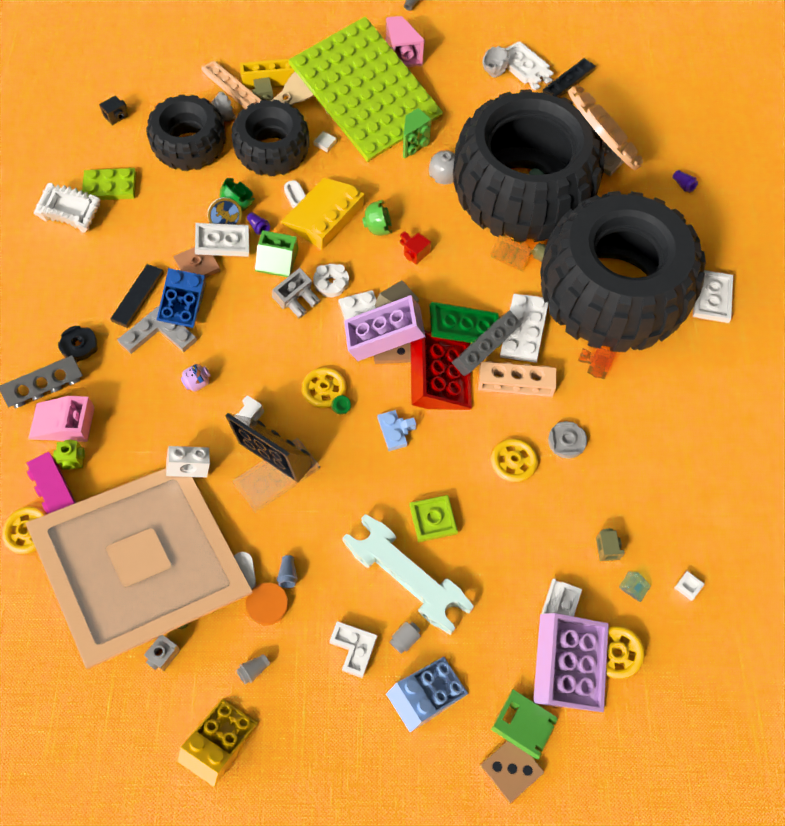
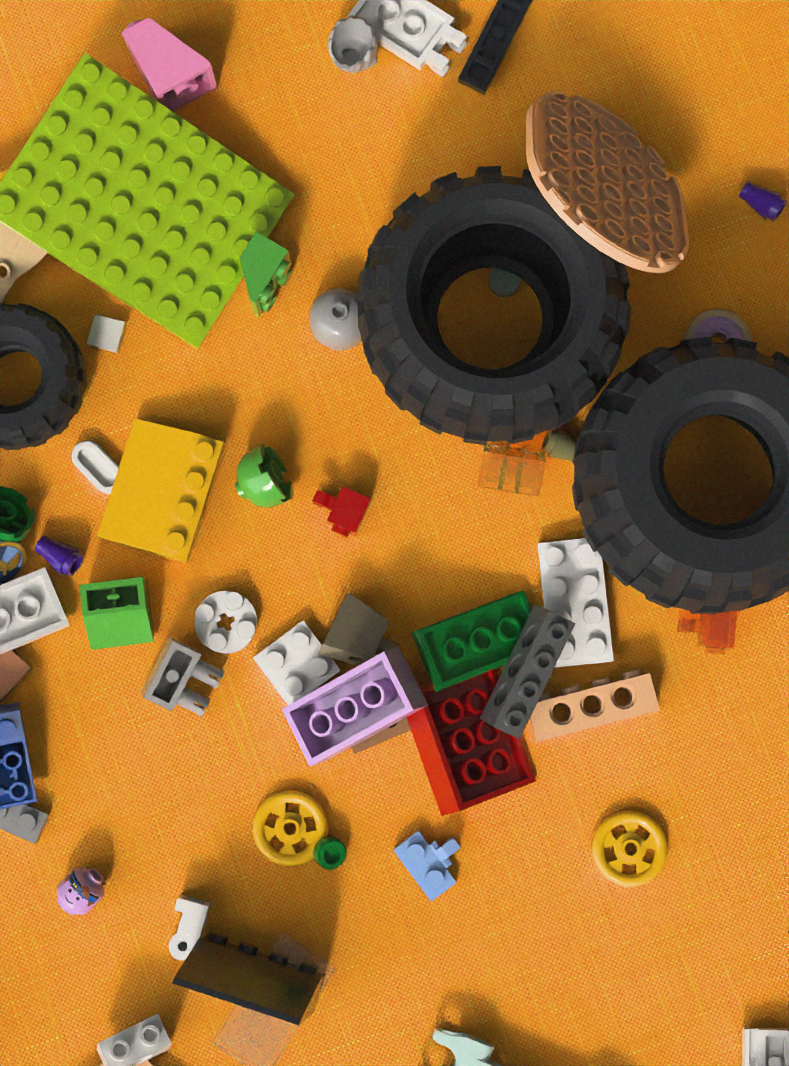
camera: 20 degrees left, 20 degrees up
(433, 518) = (538, 994): lime plate -> none
(567, 440) = (700, 783): light grey tile -> none

